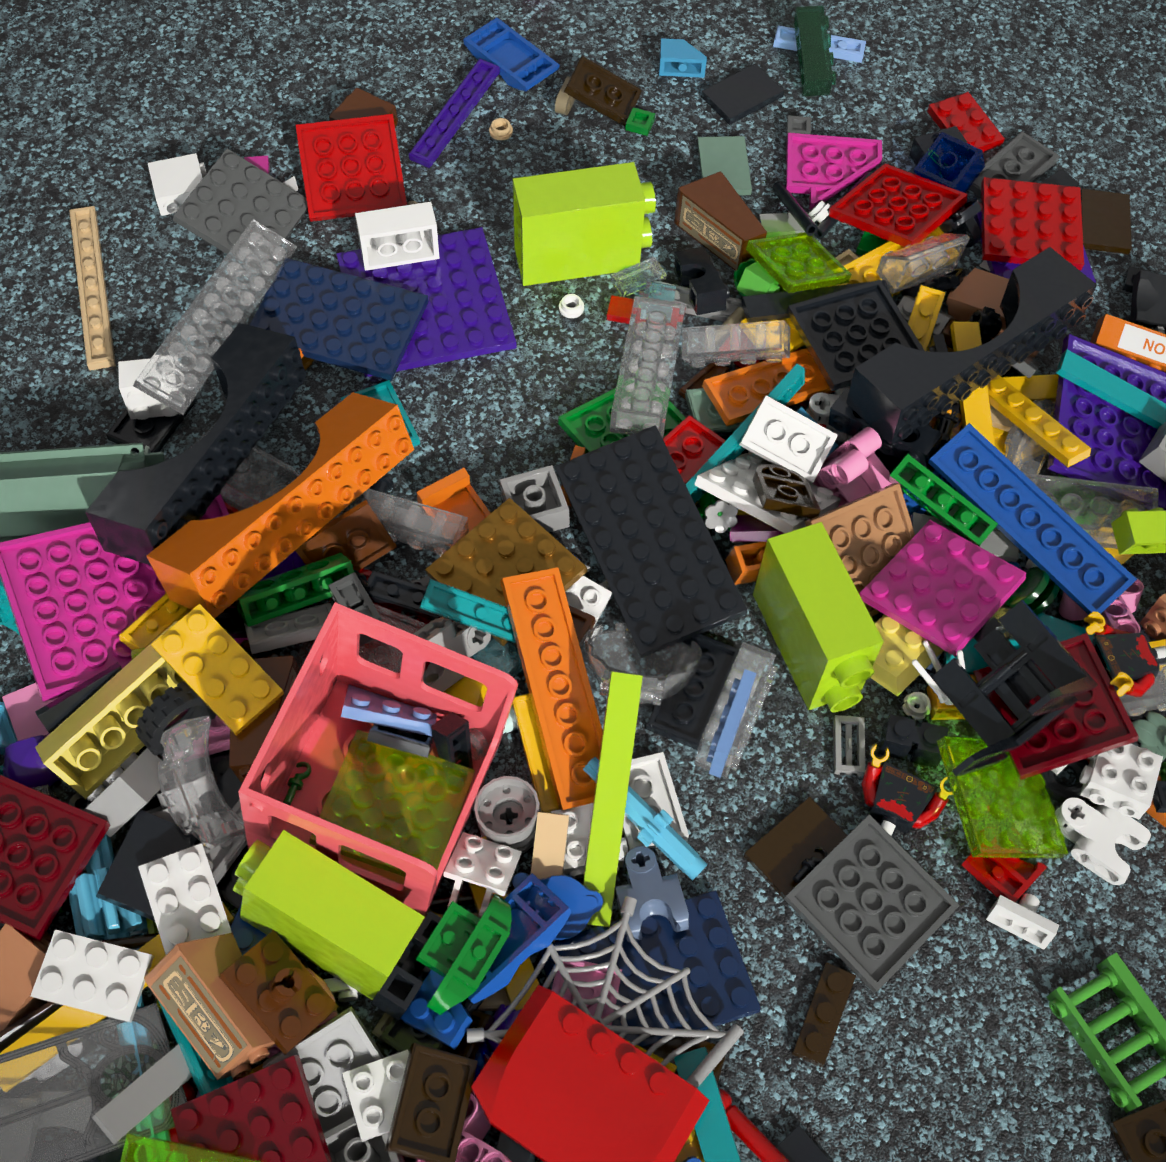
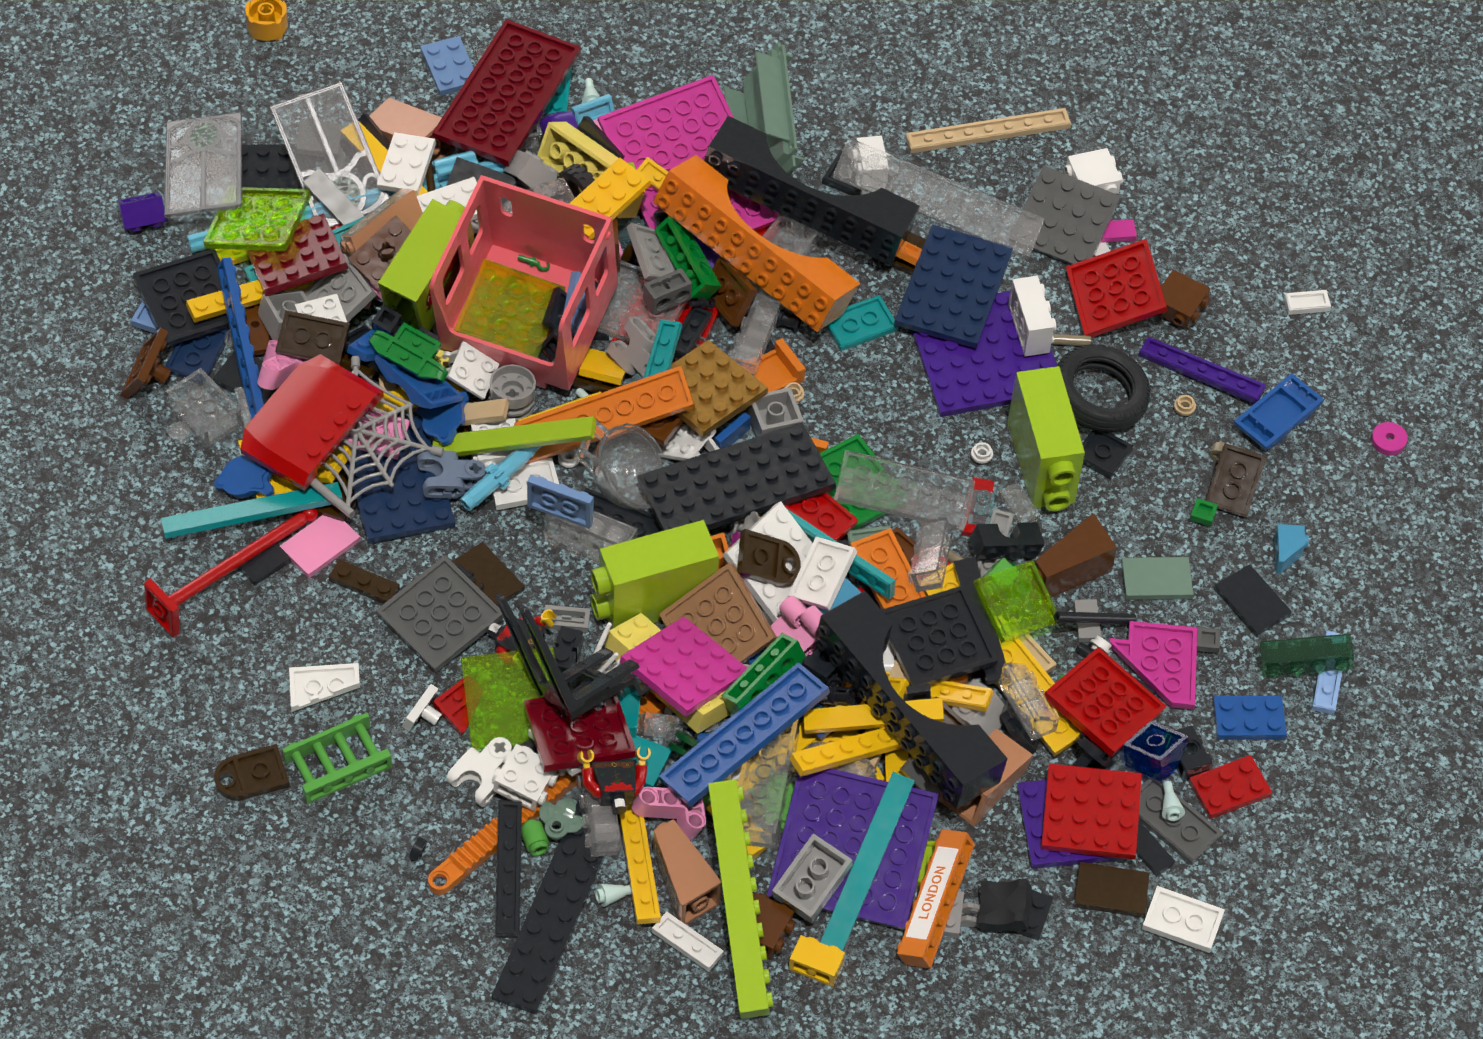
camera: 90 degrees right, 5 degrees down
(363, 28) = (1307, 302): none -> white tile
(474, 164) = (1121, 366): none -> black tyre
(485, 484) = (796, 389): none -> tan plate
(766, 1085) = (320, 544): none -> bright pink tile
(882, 105) = (1249, 718): none -> blue plate
(1002, 1067) = (320, 683): none -> white wing
(1008, 161) = (1172, 807): none -> light aqua cone
(1127, 166) = (1183, 919): none -> white plate

